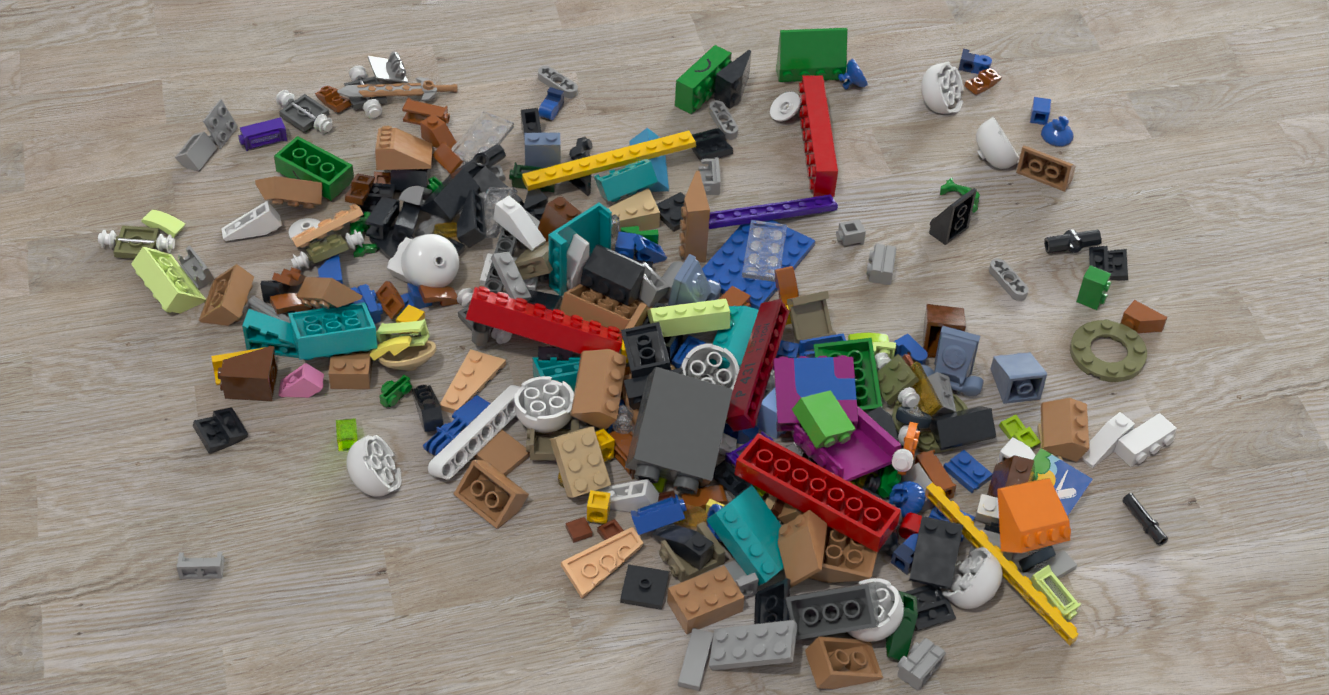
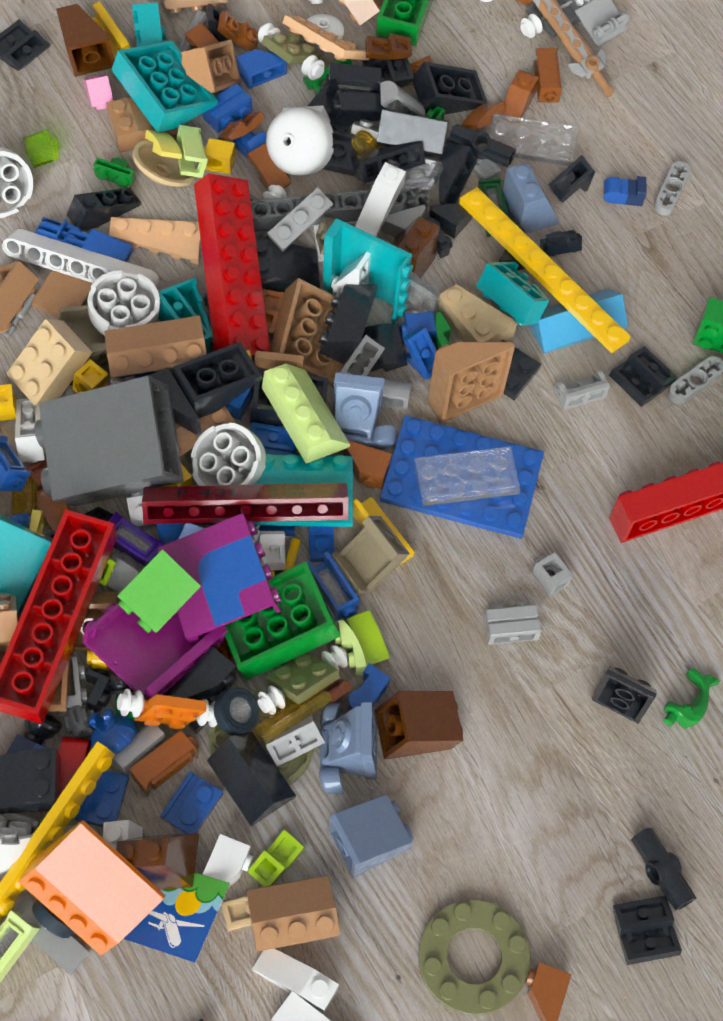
camera: 70 degrees right, 15 degrees up
(401, 150) = (462, 64): medium nougat slope -> none
(772, 211) = (544, 469): dark purple tile -> none
(786, 283) = (415, 515): dark orange slope -> none
(1007, 272) = (554, 783): light grey beam -> none
(1093, 288) = (571, 911): green brick -> none

